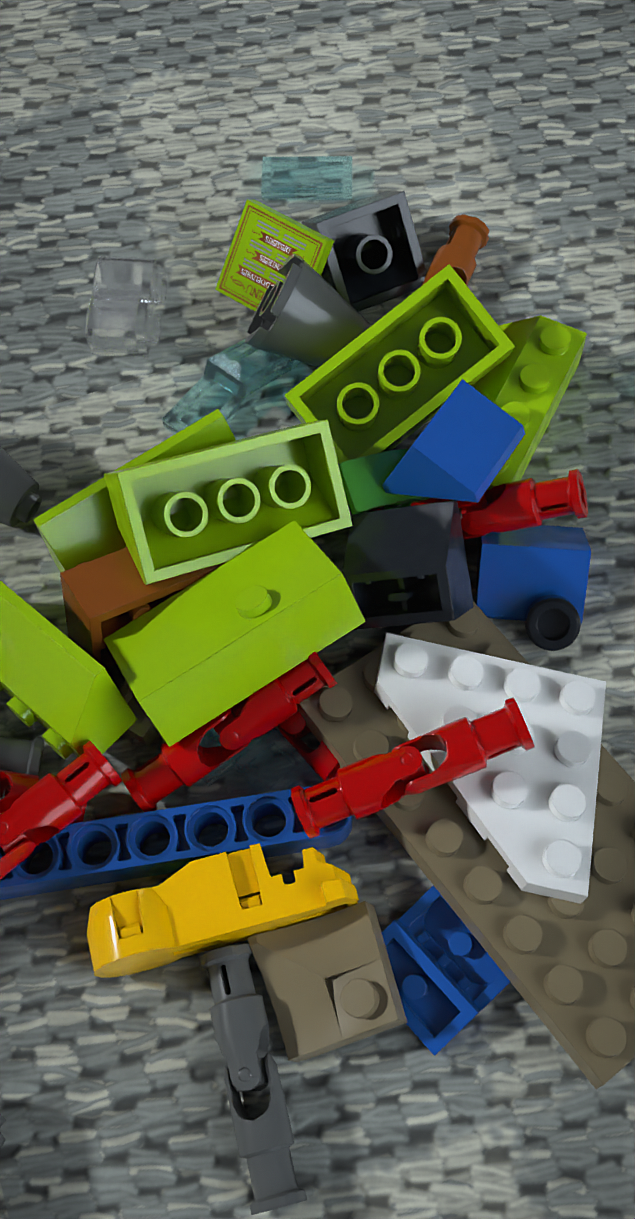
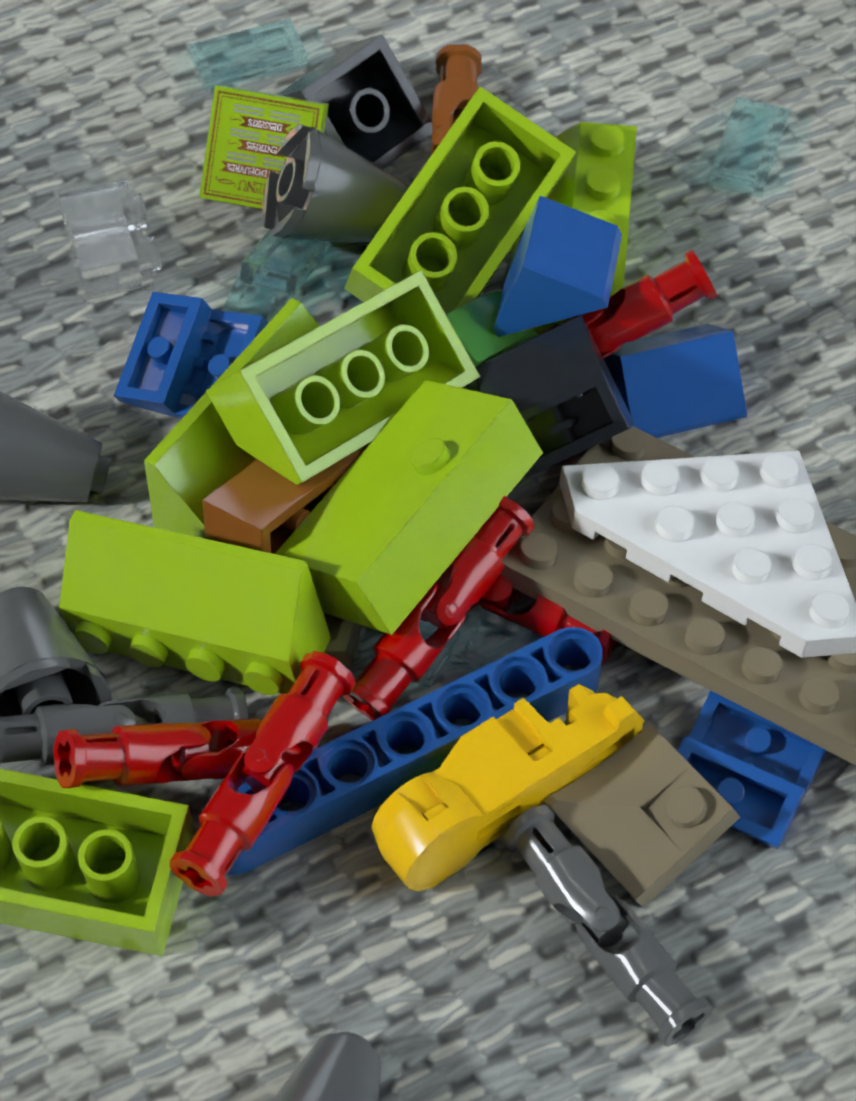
camera: 25 degrees left, 10 degrees down
(135, 419) = (182, 352): none -> blue slope
(387, 778) = (643, 576): red piece -> none
(552, 622) = (718, 419): black tile -> none

